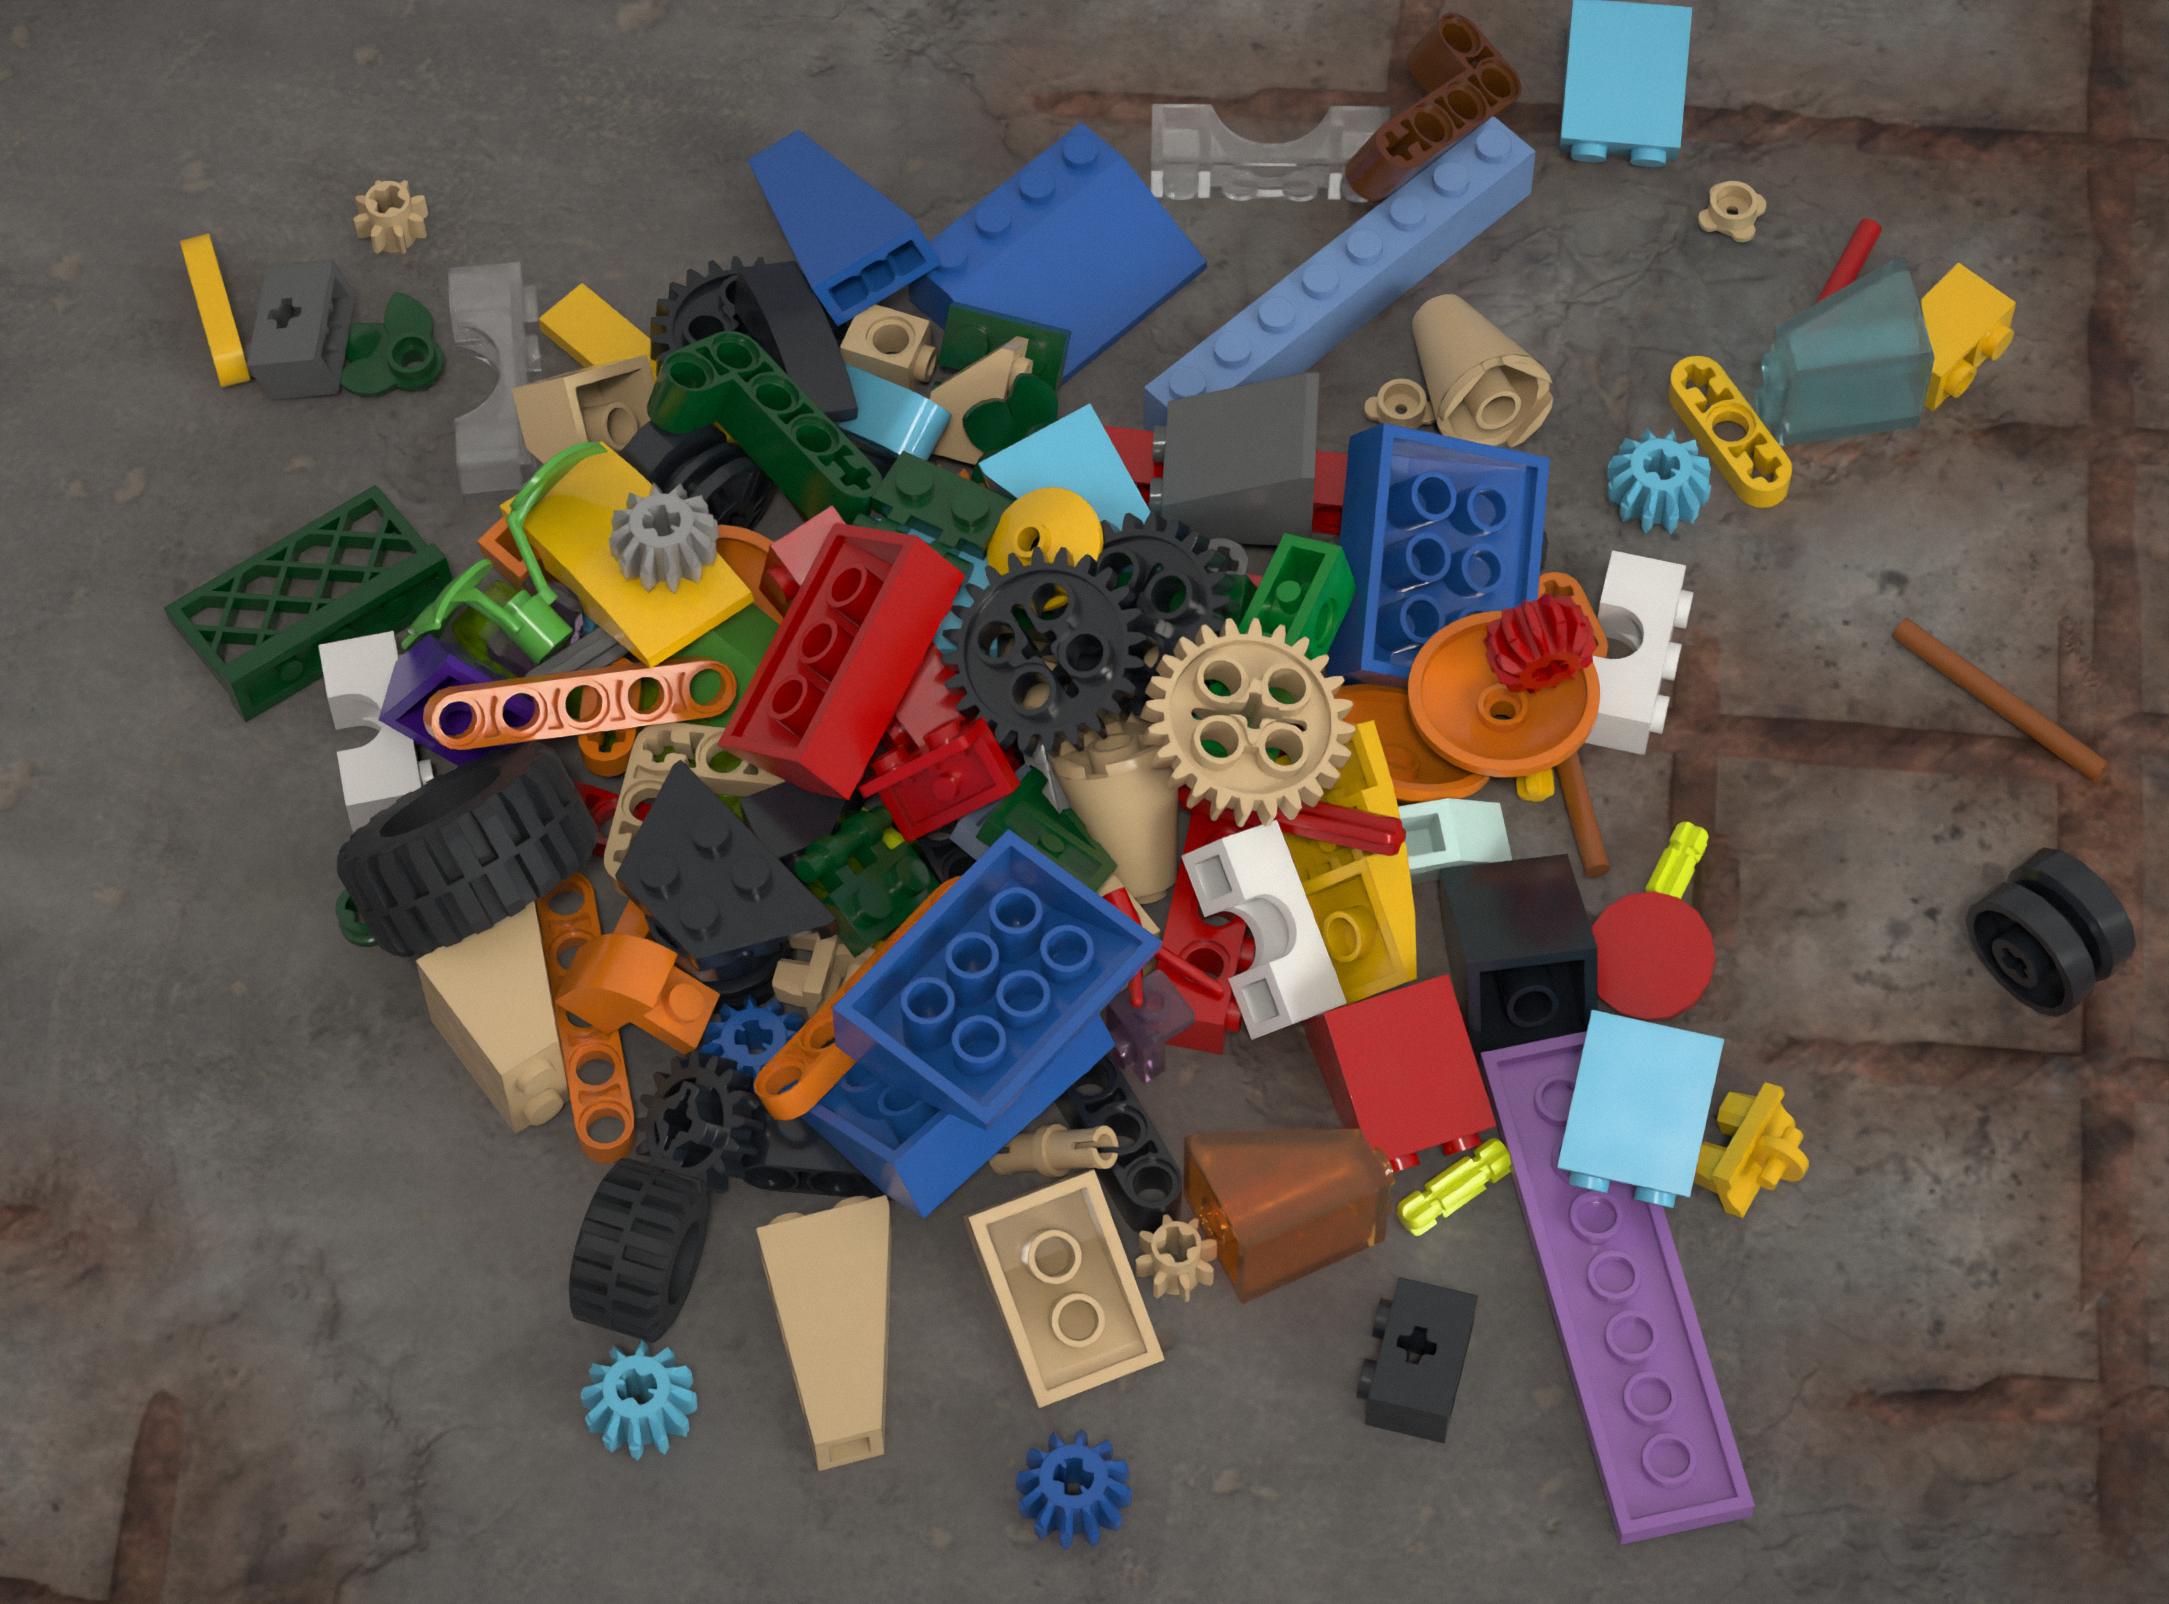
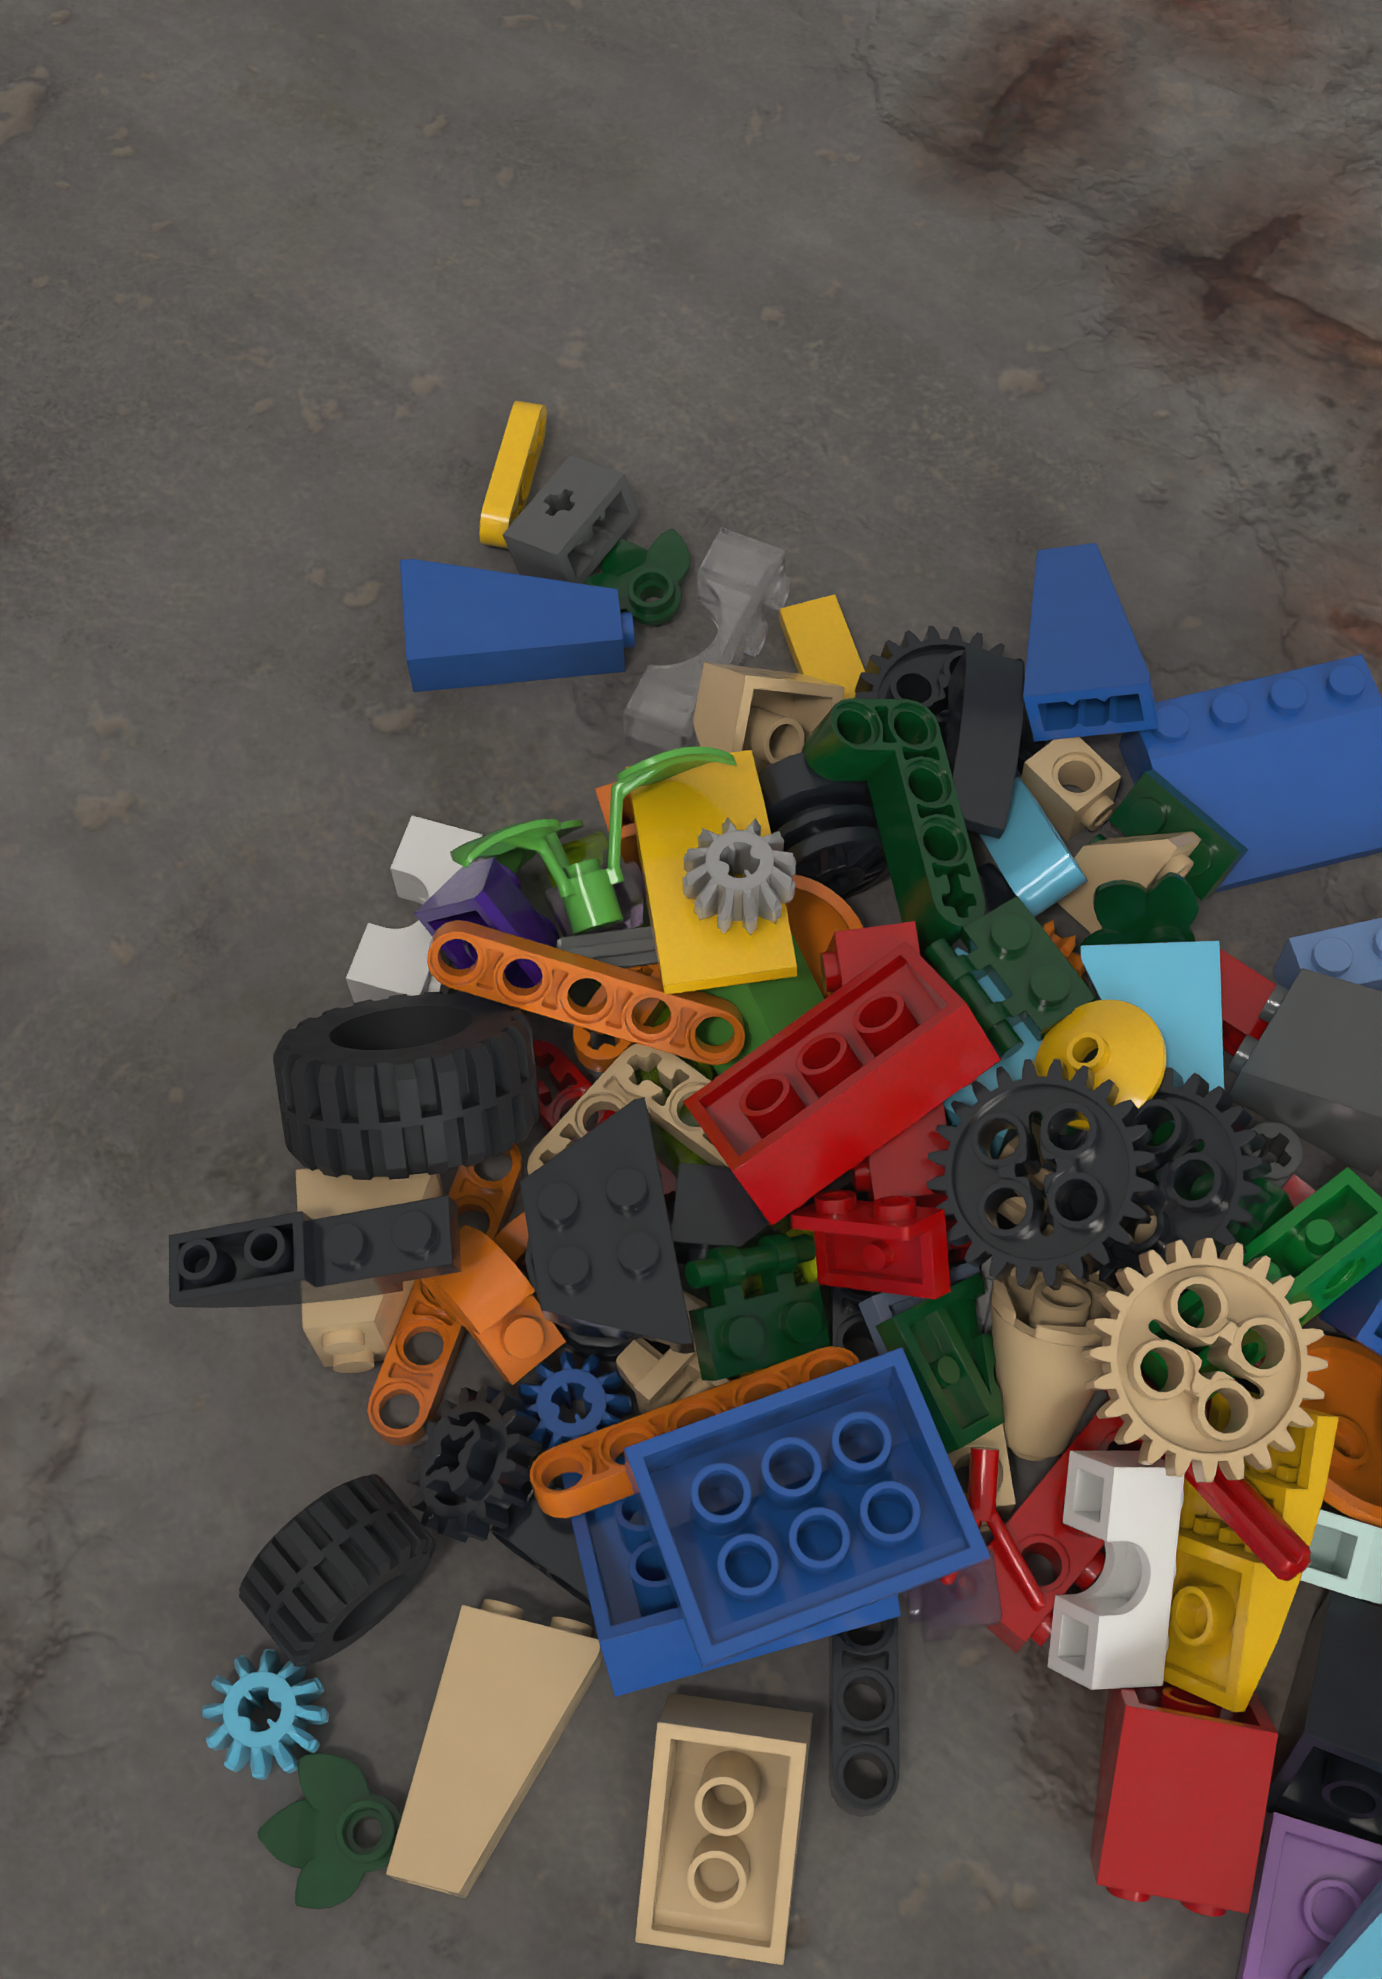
camera: 30 degrees right, 5 degrees up
(291, 657) = (479, 805): dark green fence -> none
(294, 449) = (506, 627): none -> blue slope
(390, 216) = (705, 460): tan gear -> none
(481, 1014) = (314, 1260): none -> black slope
(737, 1459) = (323, 1828): none -> dark green plate
(1056, 1150) = (791, 1684): tan pin -> none
(1173, 1276) = (869, 1853): tan gear -> none
(1286, 1201) = (987, 1877): clear orange slope -> none
(1454, 1187) = (1173, 1941): neon yellow axle -> none

